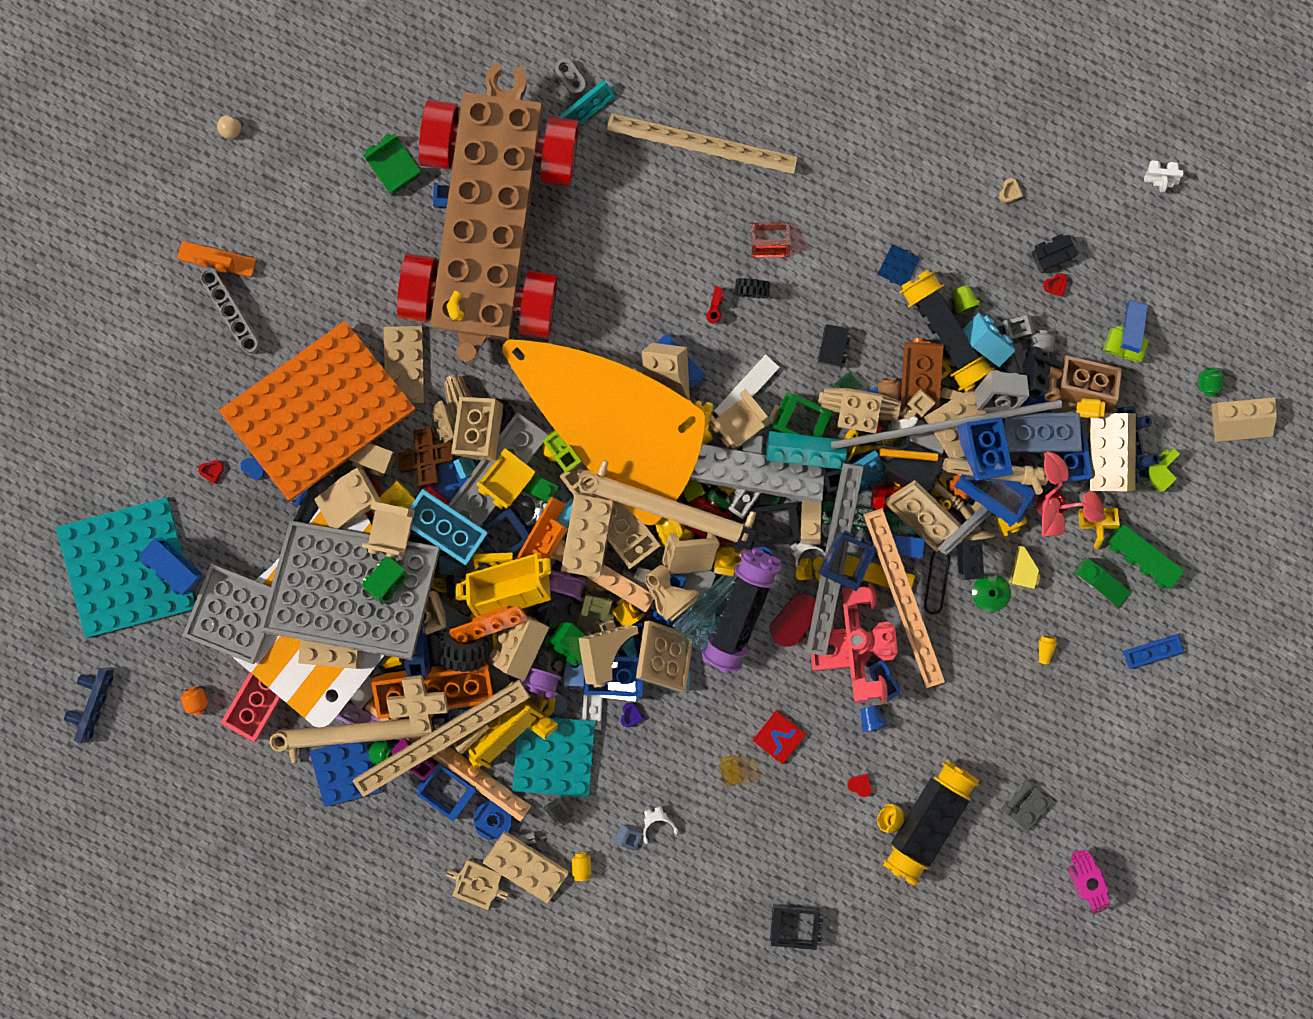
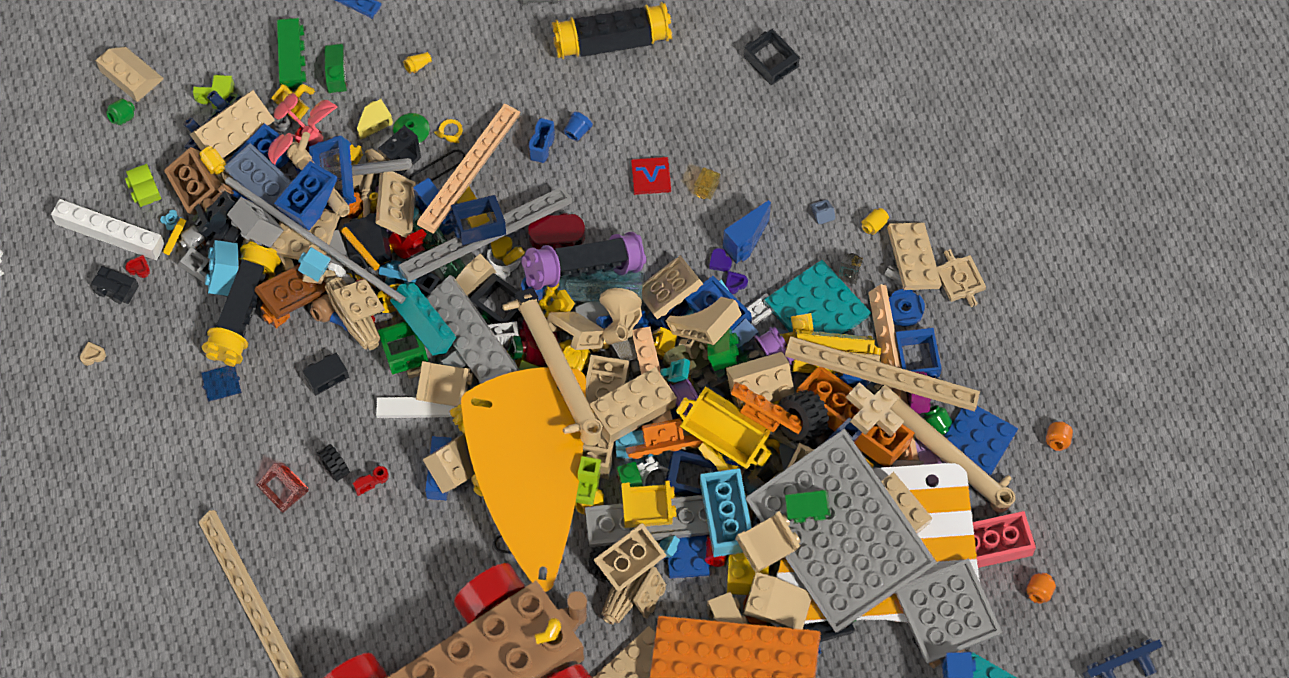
camera: 135 degrees left, 25 degrees down
(290, 829) = (1059, 436): none -> orange head
(426, 457) = (688, 583): reddish brown plate -> none
(586, 594) = (677, 372): none -> teal plate
(652, 816) = (791, 205): white helmet -> none
(656, 754) = (744, 234): none -> blue slope
(659, 720) = (720, 261): none -> dark purple tile
(847, 381) = (345, 341): clear green plate -> none
(856, 646) = (536, 175): coral piece -> none
(860, 785) = (631, 98): red tile -> none
(890, 818) = (635, 59): yellow hair -> none
(924, 405) = (313, 264): none -> medium azure brick
(951, 618) = (453, 139): none -> yellow piece
(964, 300) = (206, 314): lime piece -> none
(1057, 332) = (174, 236): none -> yellow tile
(1078, 338) = (170, 225): none -> medium azure plate
(1108, 286) = (108, 229): none -> white brick
(1134, 326) = (124, 187): blue tile -> none

